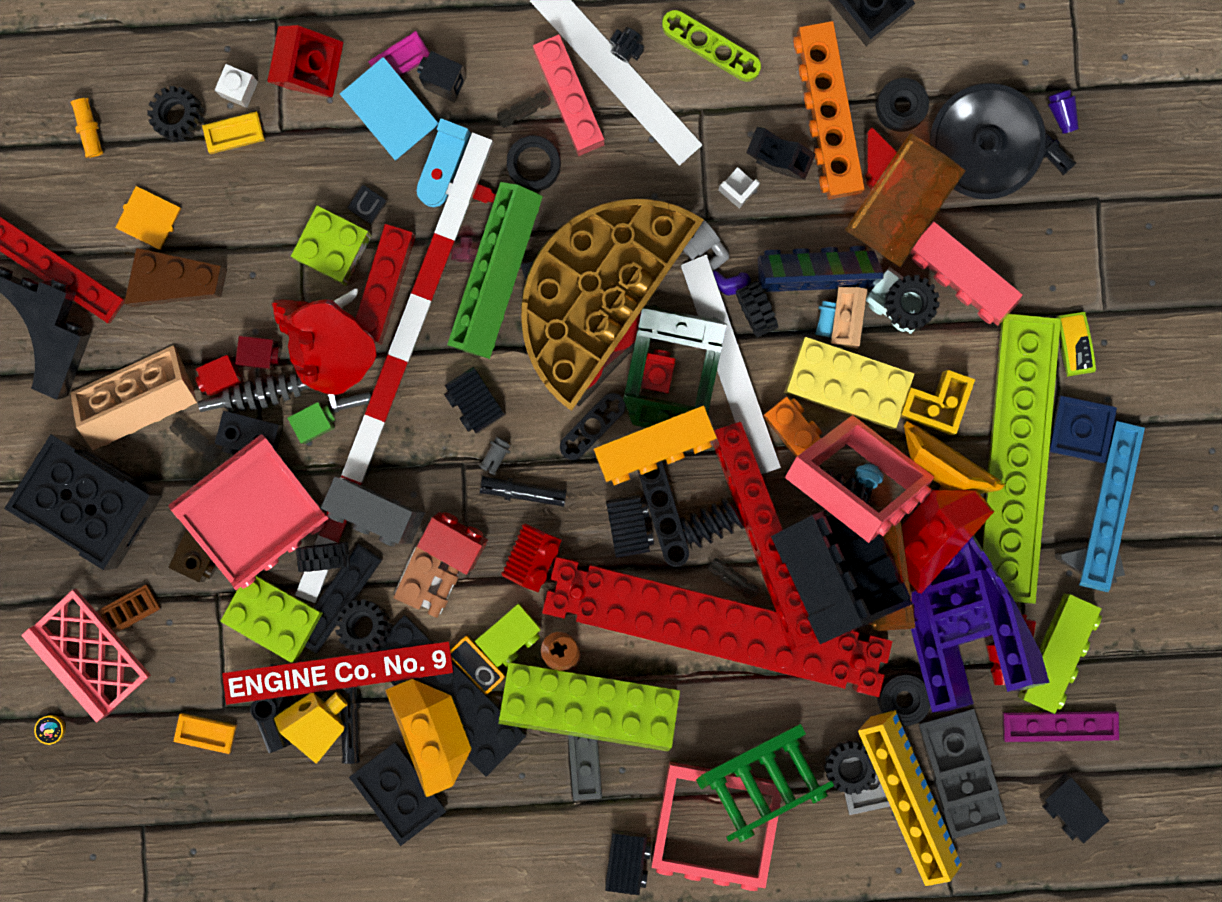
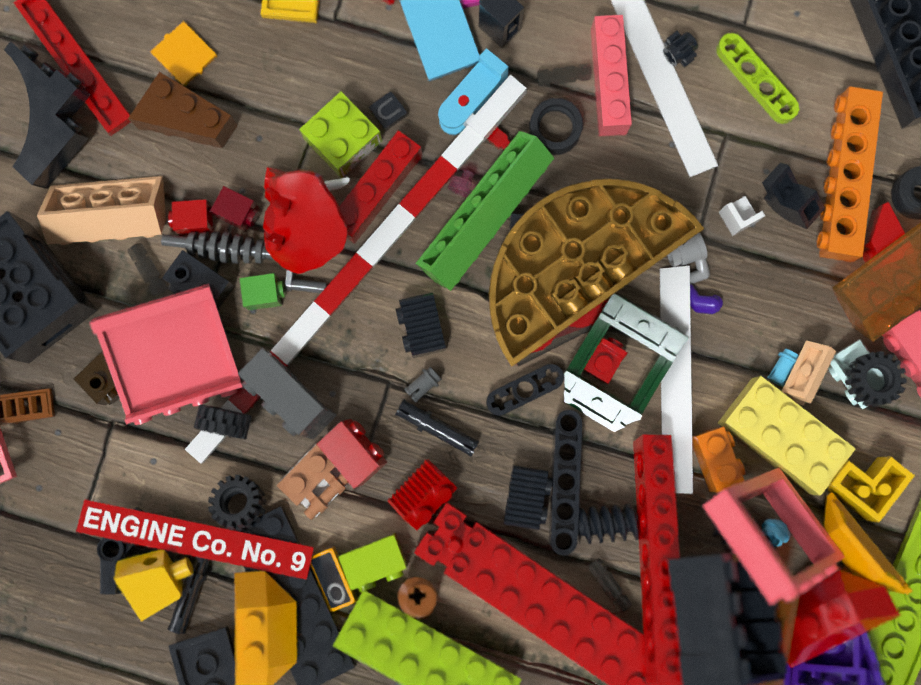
camera: 20 degrees right, 5 degrees down
(205, 733) = (49, 551): light orange tile -> none
(272, 618) = (154, 463): lime plate -> none
(341, 592) = (228, 462): black tile -> none
(655, 444) = (583, 427): light orange brick -> none
(757, 309) = (722, 333): black tyre -> none
(818, 270) = (792, 318): dark blue slope -> none

